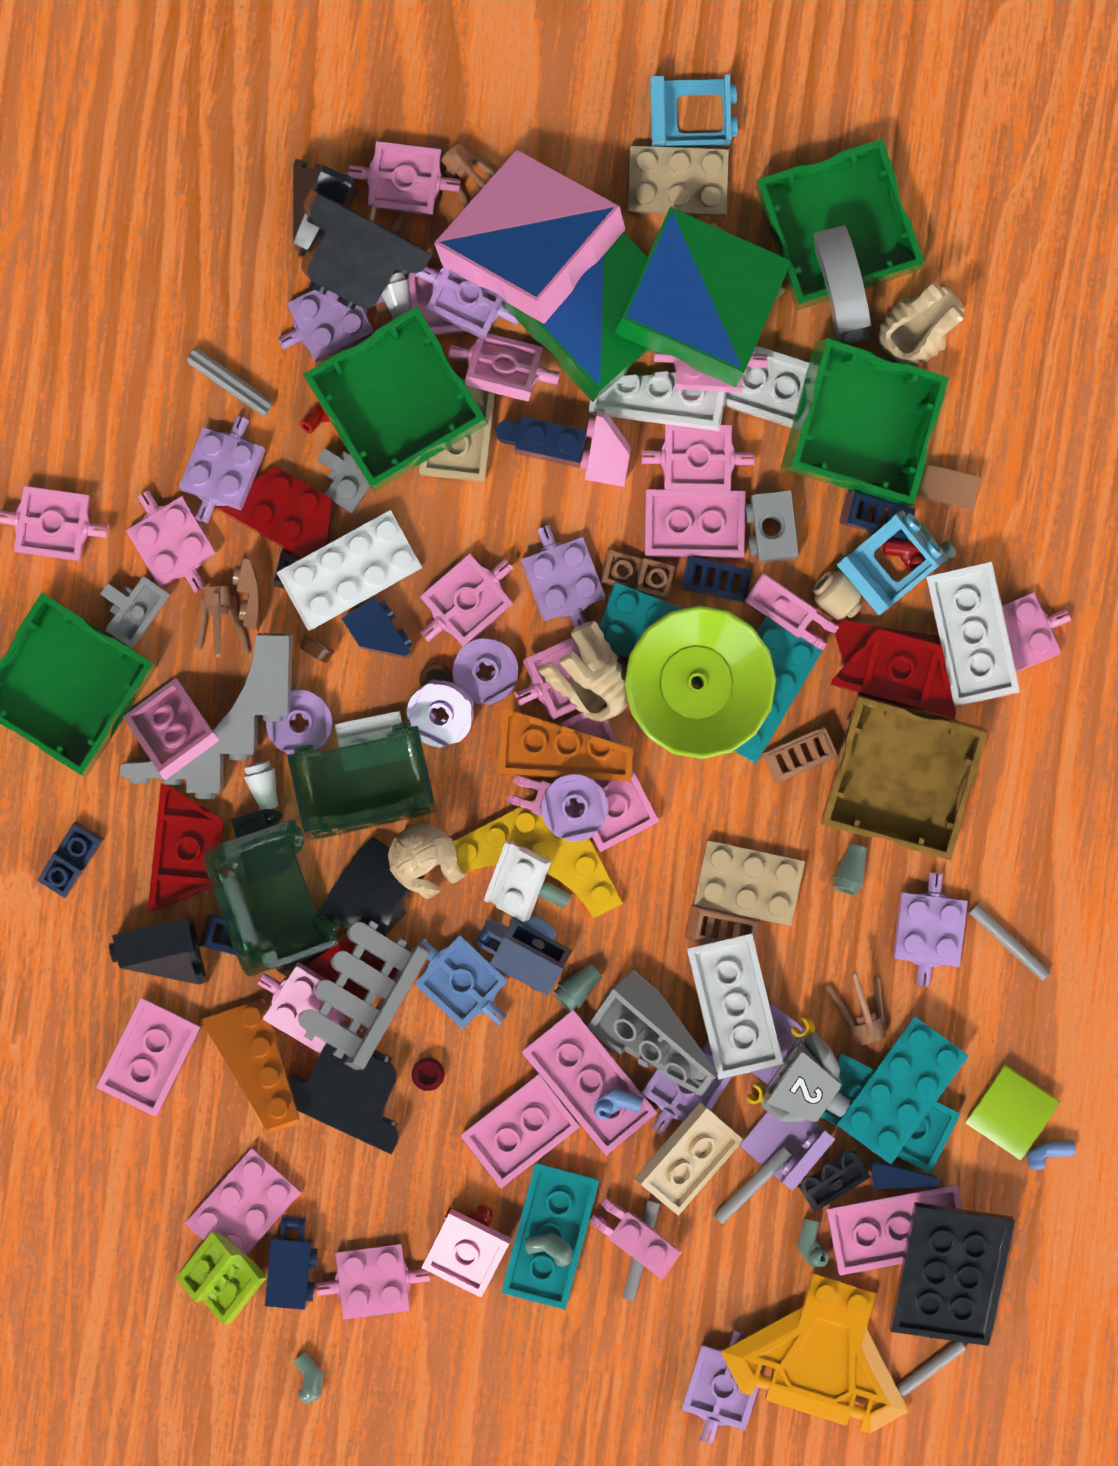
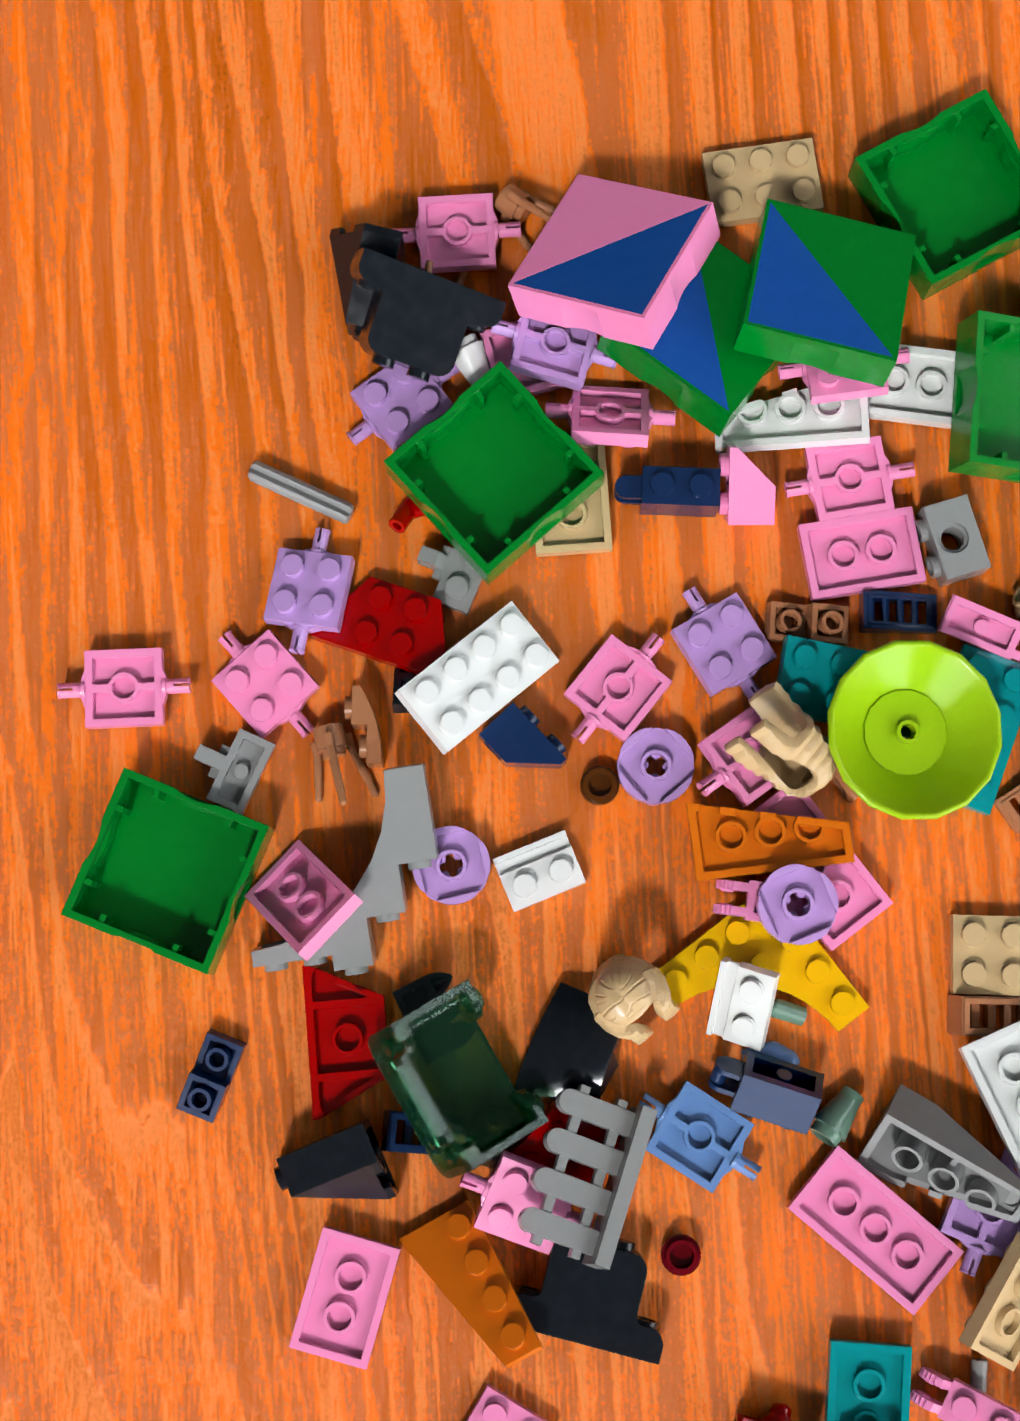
camera: 10 degrees left, 5 degrees down
(262, 783) = (421, 944): white cone -> none
(316, 649) = (455, 776): reddish brown tile -> none
(362, 784) = (540, 921): clear green windscreen -> none
(457, 705) = (621, 802): lavender plate -> none
(520, 1131) = (804, 1304): bright pink plate -> none
(615, 1100) = (912, 1246): medium blue arm -> none
(664, 112) = (730, 112): medium azure window -> none
(843, 285) = (980, 248): light grey arch -> none

